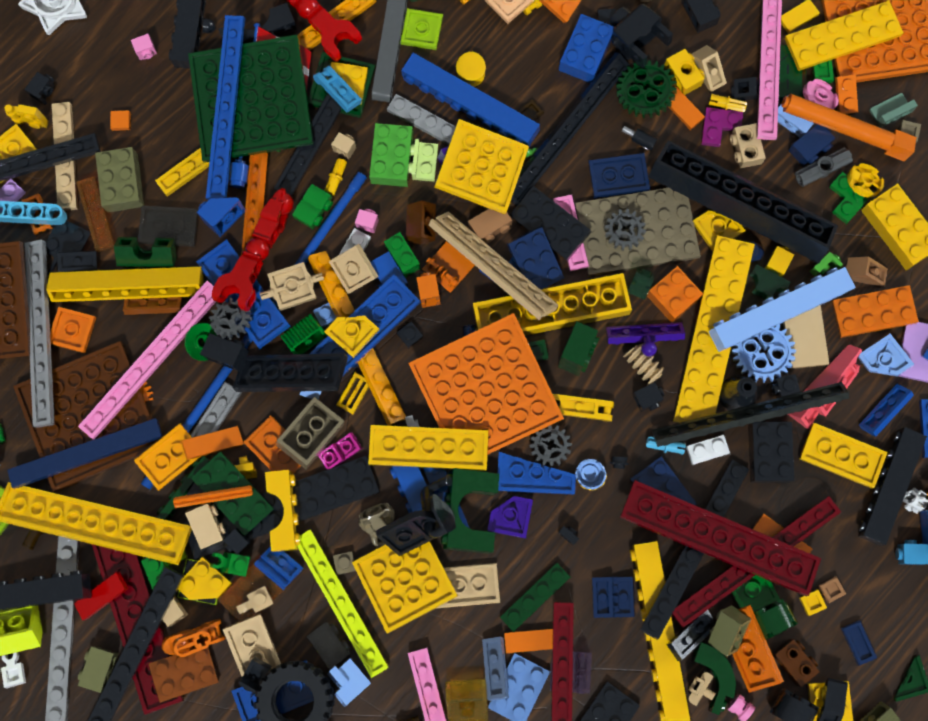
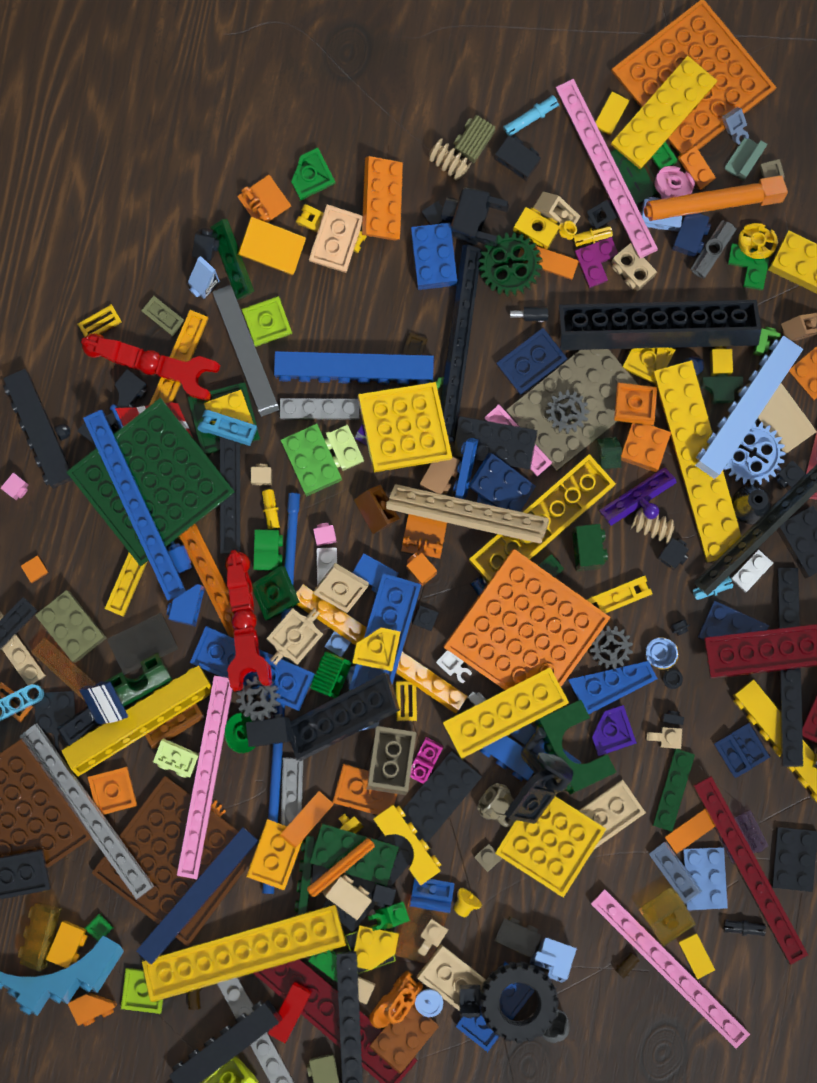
camera: 35 degrees left, 5 degrees up
(105, 251) = (103, 703): none -> dark blue slope
(136, 330) = (176, 758): none -> yellowish green bracket
(220, 656) = (429, 1002): none -> light blue piece
(297, 243) = (275, 593): none -> dark green plate
(303, 590) = (466, 902): none -> yellow piece
(341, 604) = (507, 895): neon yellow plate -> none
(402, 254) = (376, 548): green brick -> none
(409, 384) = (451, 664): none -> white plate
(471, 68) = (336, 335): yellow piece -> none
(514, 228) = (465, 468): none -> blue plate
(556, 550) = (668, 737): none -> tan plate
(588, 502) = (672, 678): none -> black plate
(686, 254) = (635, 403): none -> orange tile
(709, 85) = (567, 230): none -> yellow plate
(899, 74) = (734, 123): none -> sand blue plate

